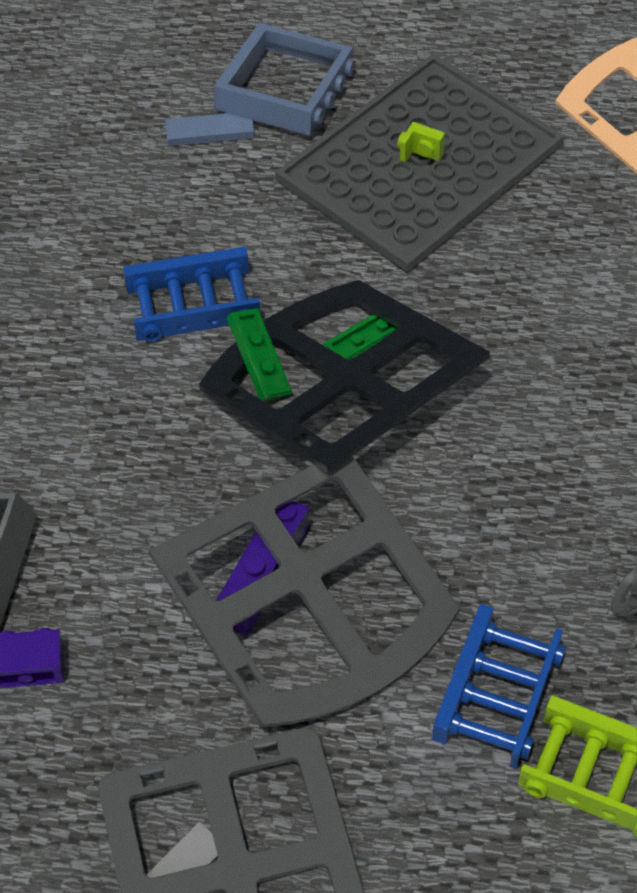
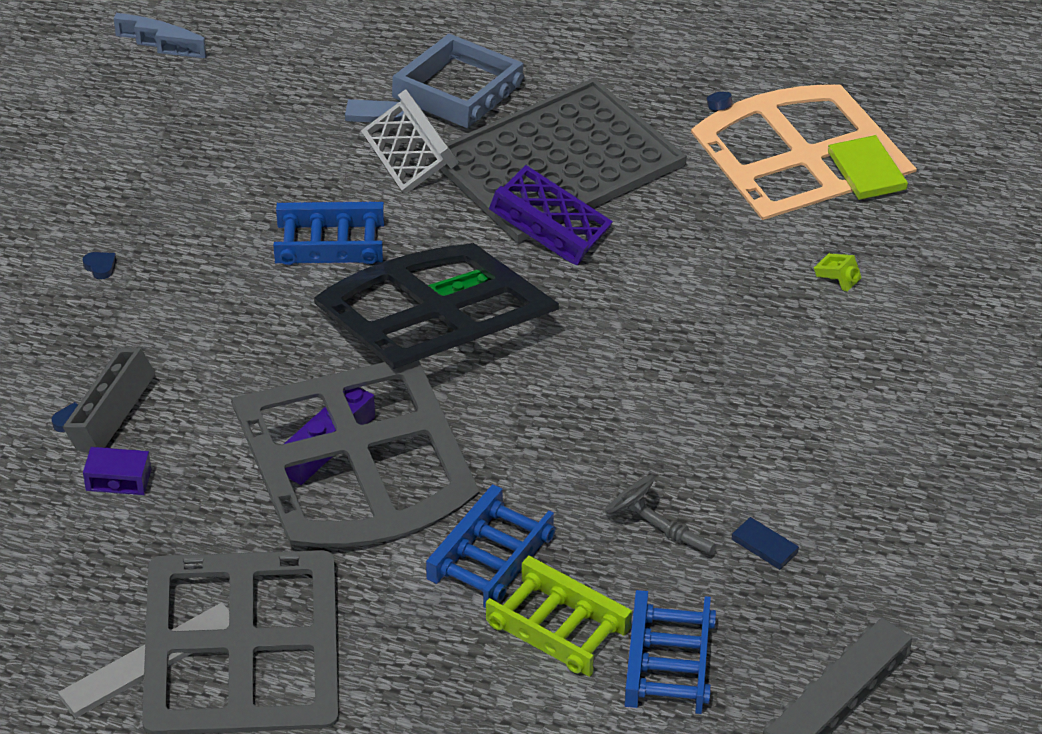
camera: 10 degrees right, 10 degrees down
(259, 355) = (370, 282): green tile -> none
(272, 152) = (427, 134): none -> light grey fence
(422, 141) = (558, 142): lime bracket -> none
(432, 248) = (543, 225): none -> dark purple fence
(576, 61) = (719, 101): none -> dark blue tile

